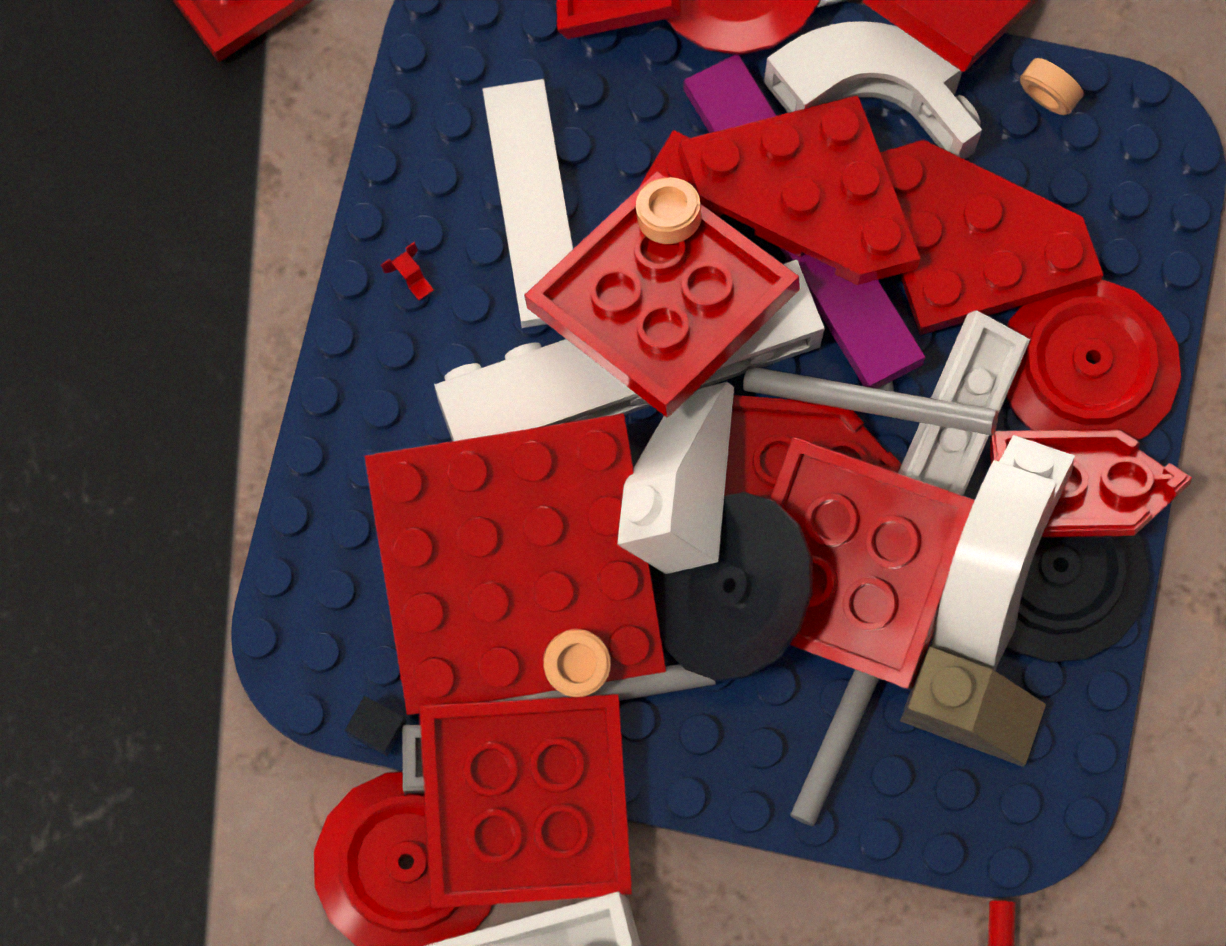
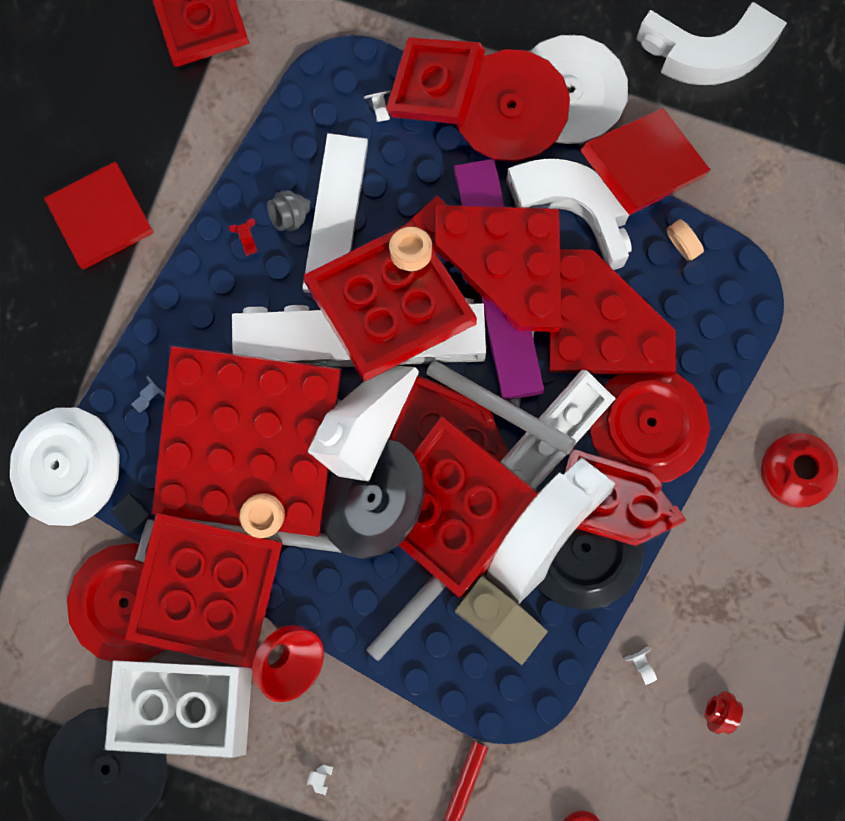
camera: 20 degrees right, 5 degrees up
(177, 309) = (99, 215): none -> red tile
(285, 697) = (64, 466): none -> white piece
(339, 546) = (146, 395): none -> sand blue piece
(461, 216) = (288, 210): none -> dark grey plate
(543, 28) = (379, 105): none -> white piece
(693, 874) = (295, 668): none -> red piece
(1196, 714) = (642, 665): none -> white piece

